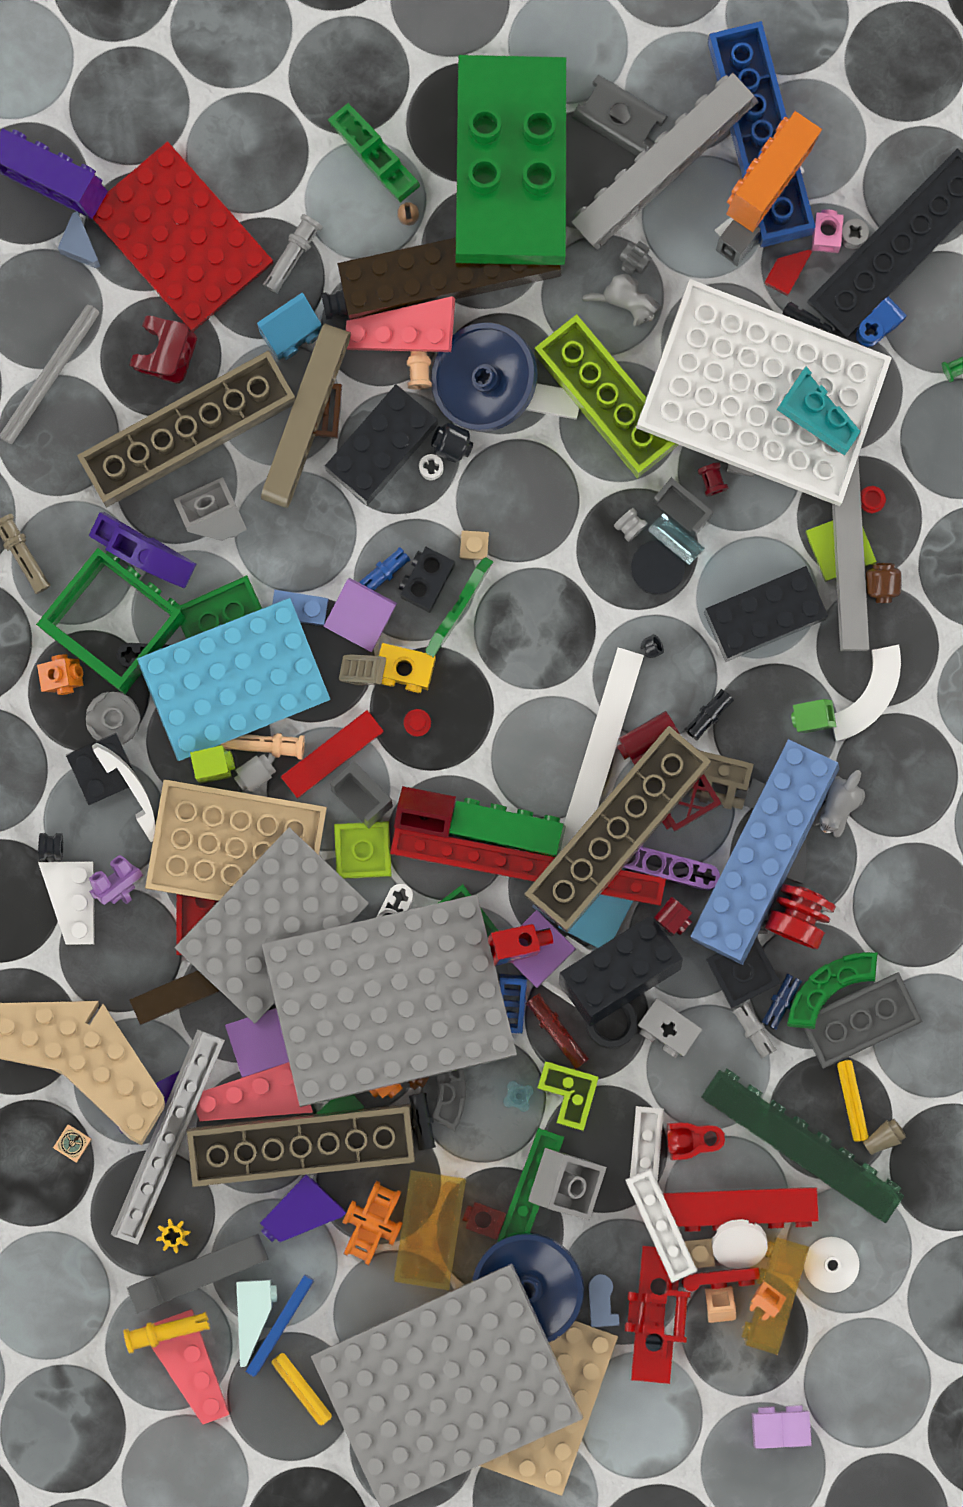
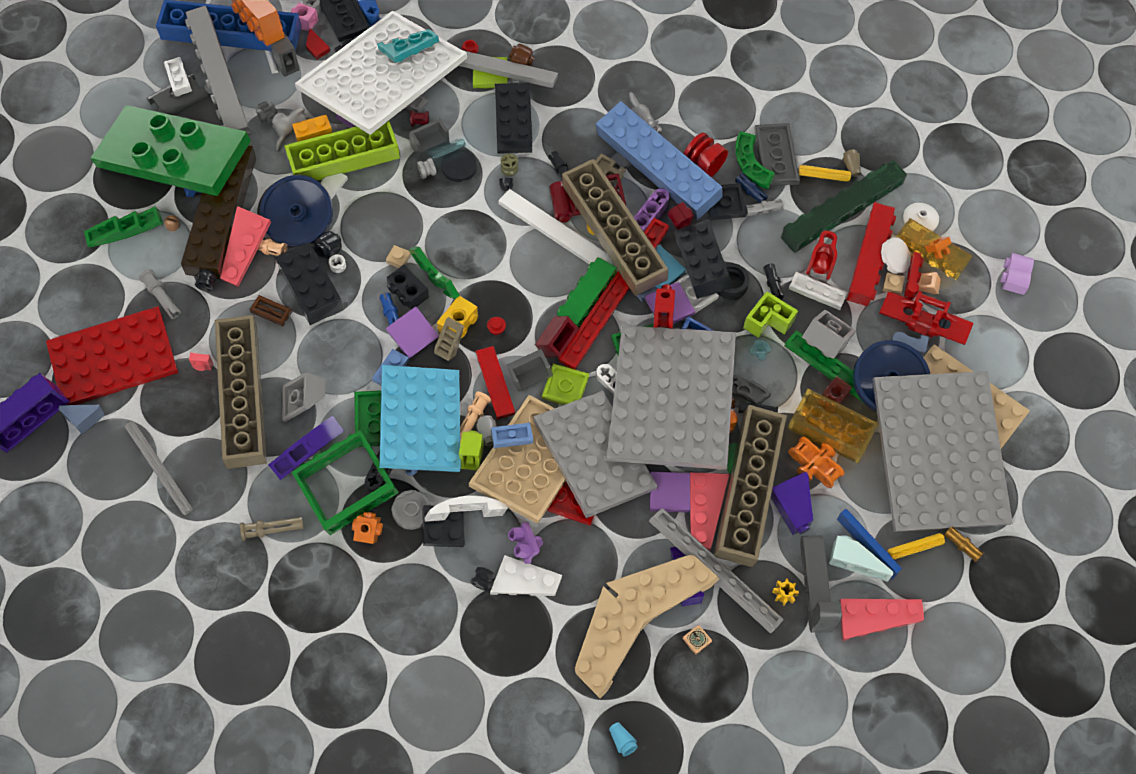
camera: 75 degrees left, 20 degrees down
(154, 1334) = (852, 627): yellow pin -> none
(172, 996) = (619, 533): dark brown slope -> none
(173, 352) = (184, 382): dark red piece -> none
(210, 357) = (201, 361): none -> coral plate
(249, 809) = (511, 435): none -> medium blue plate
(290, 327) = (206, 305): dark azure slope -> none
(305, 413) = (269, 319): dark tan beam -> none
(326, 1451) = (964, 544): none -> pearl gold pin
(557, 1031) = (718, 315): clear red pin -> none
(626, 339) = (312, 128): none -> light orange brick
(634, 1082) = (773, 281): none -> black pin
(646, 103) = (177, 76): none -> white tile
(661, 1013) = (747, 249): light grey brick -> none
(661, 1225) = (872, 290): white tile -> none
(688, 636) = (512, 161): none -> olive wheel
(813, 716) = (585, 113): bright green brick -> none
(876, 697) = (583, 80): white tile -> none

